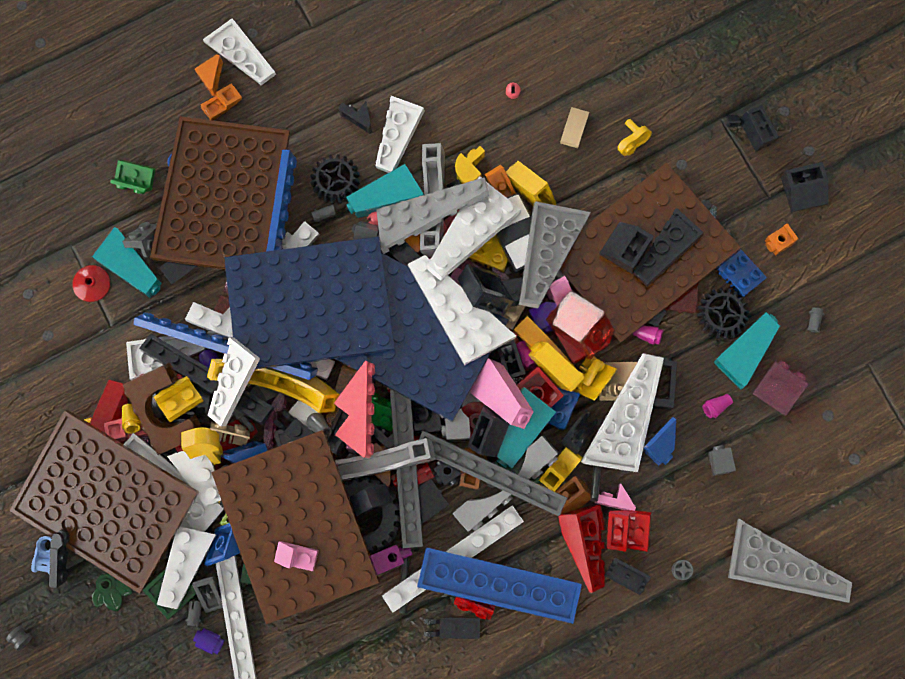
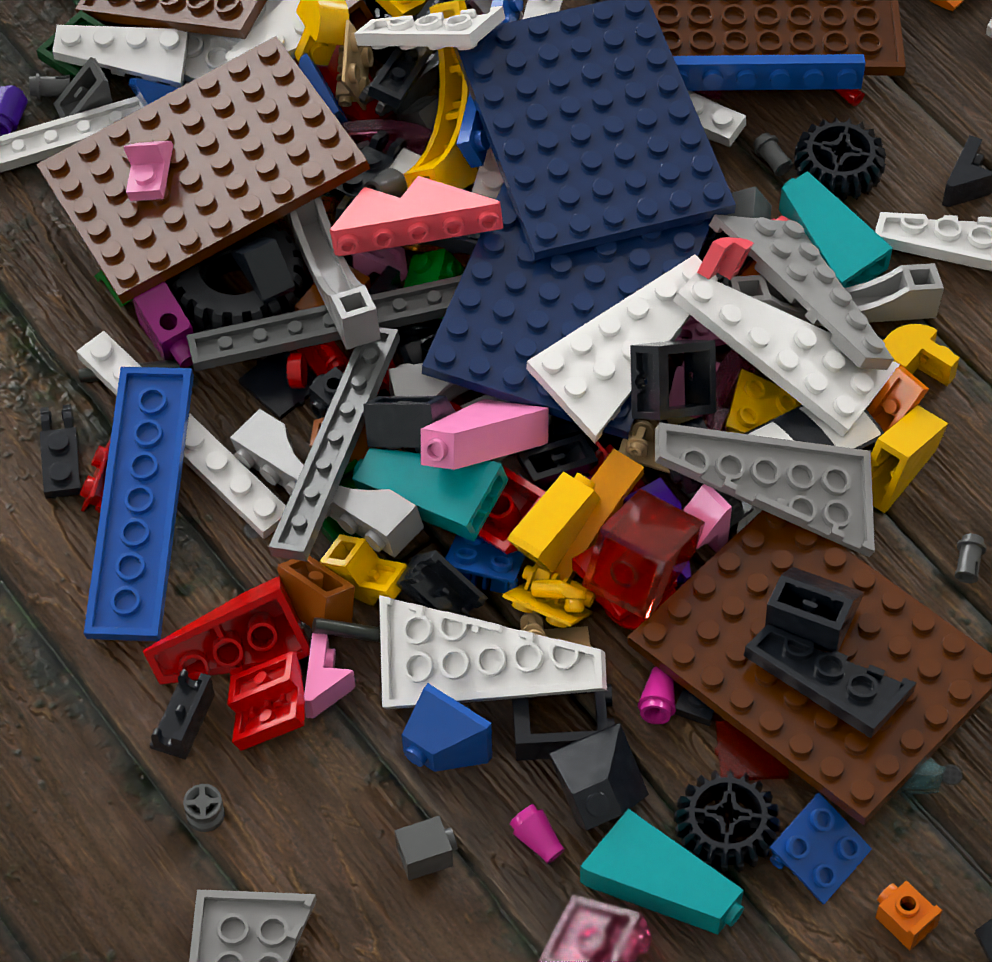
camera: 75 degrees right, 20 degrees down
(417, 247) = (725, 257): none -> coral slope
(427, 490) = (297, 370): none -> red tile
(592, 168) = (970, 549): none -> dark grey pin
(697, 369) = (599, 776): none -> black slope

